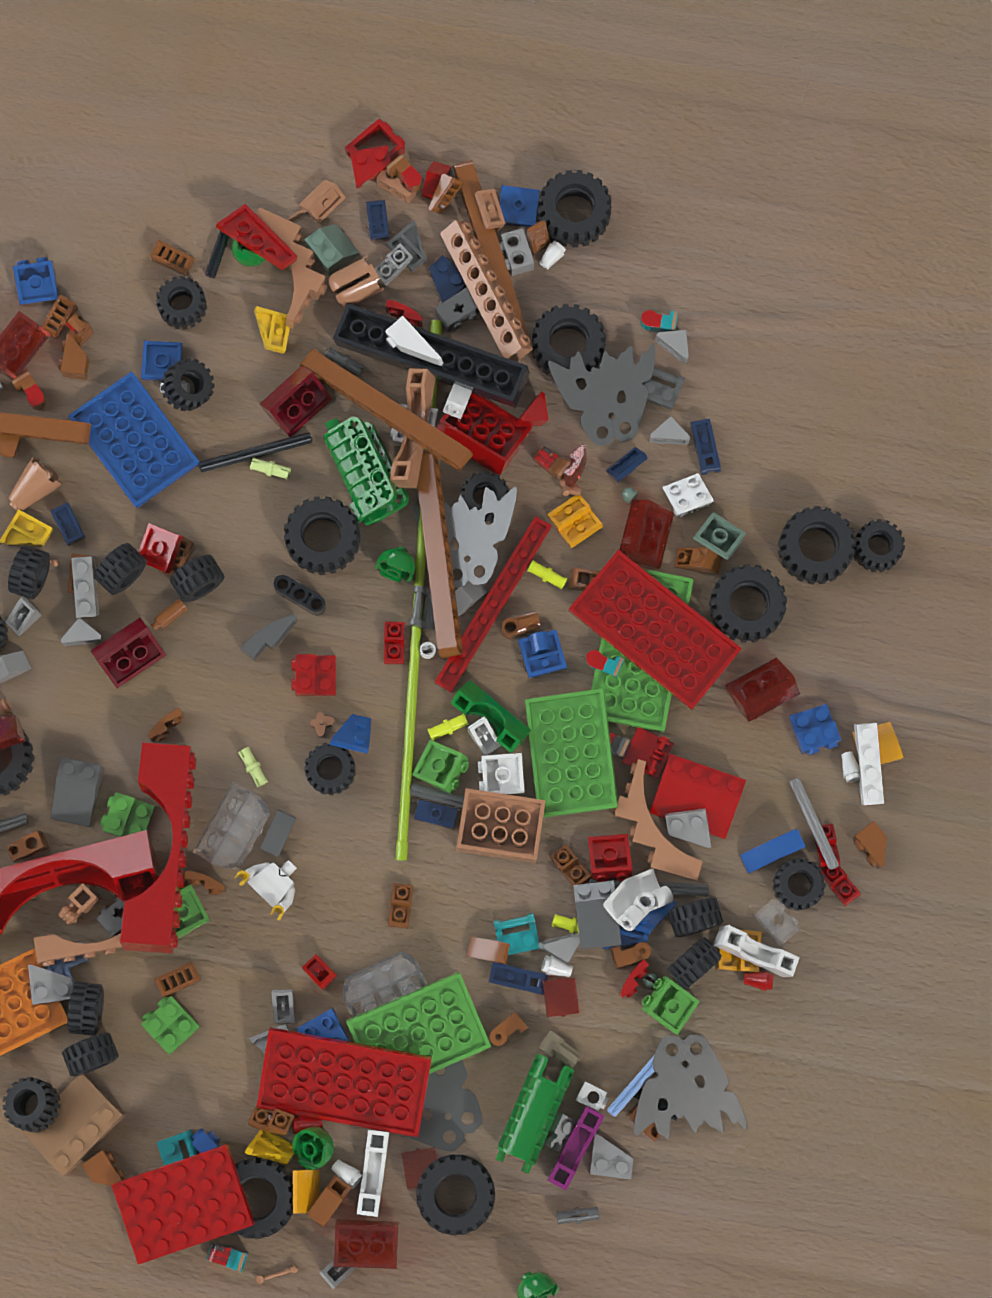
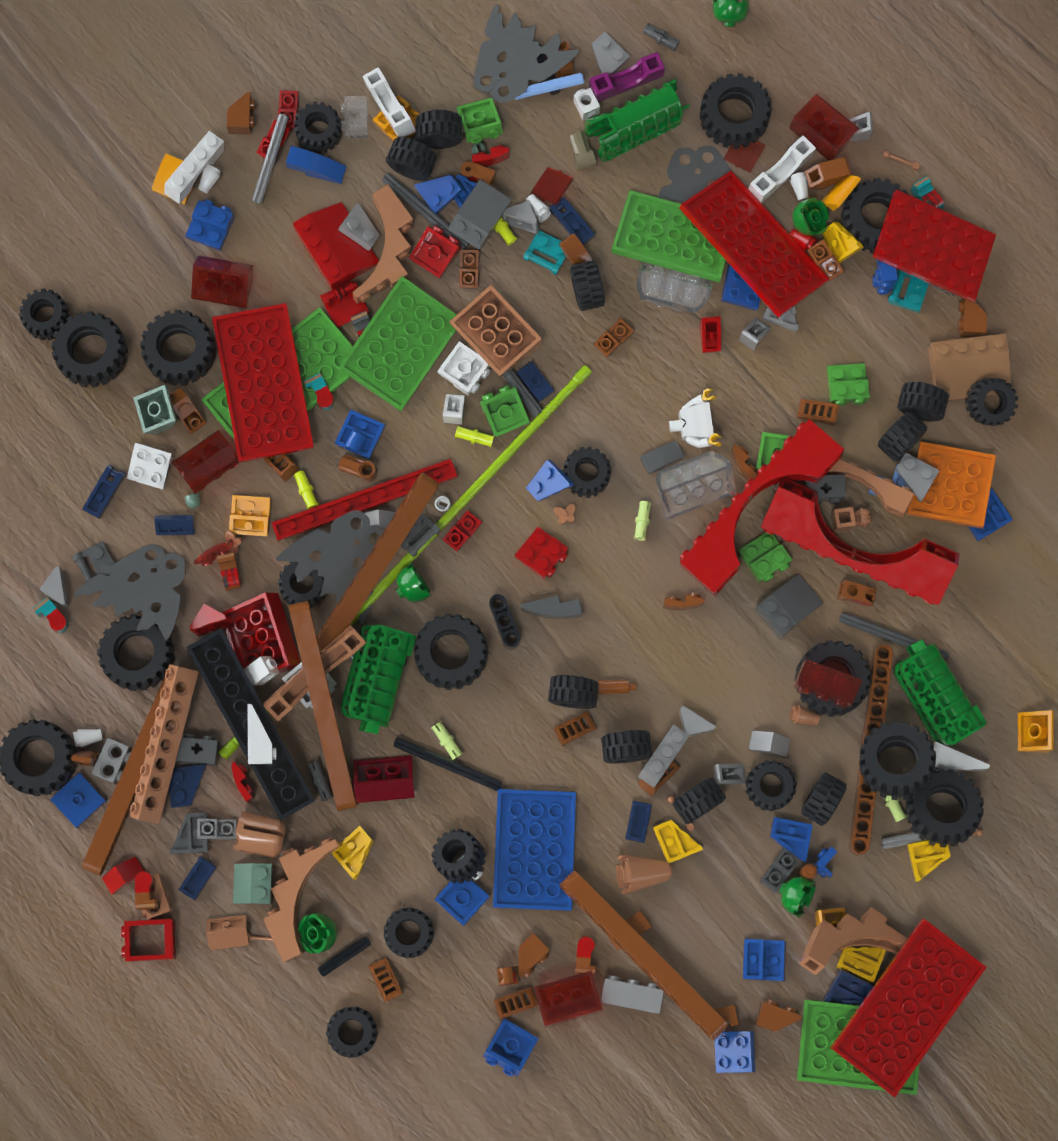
camera: 140 degrees left, 0 degrees up
(128, 653) = (669, 681): dark red slope -> none
(160, 547) = (582, 742): red plate -> none
(162, 186) = (336, 1023): none -> black tyre
(254, 234) = (307, 938): red wing -> none
(369, 163) = (166, 926): red wing -> none
(445, 192) = (123, 855): dark orange slope -> none
(455, 926) = (587, 285): none -> black tyre
(474, 701) = (431, 395): green arch -> none
(490, 209) = (103, 809): nougat panel -> none
(500, 1034) = (607, 193): dark orange leg -> none
(561, 1128) = (621, 98): light grey plate -> none
(626, 900) = (453, 202): white panel -> none
(669, 433) = (121, 524): light grey slope -> none
(759, 980) = (401, 87): red cone -> none

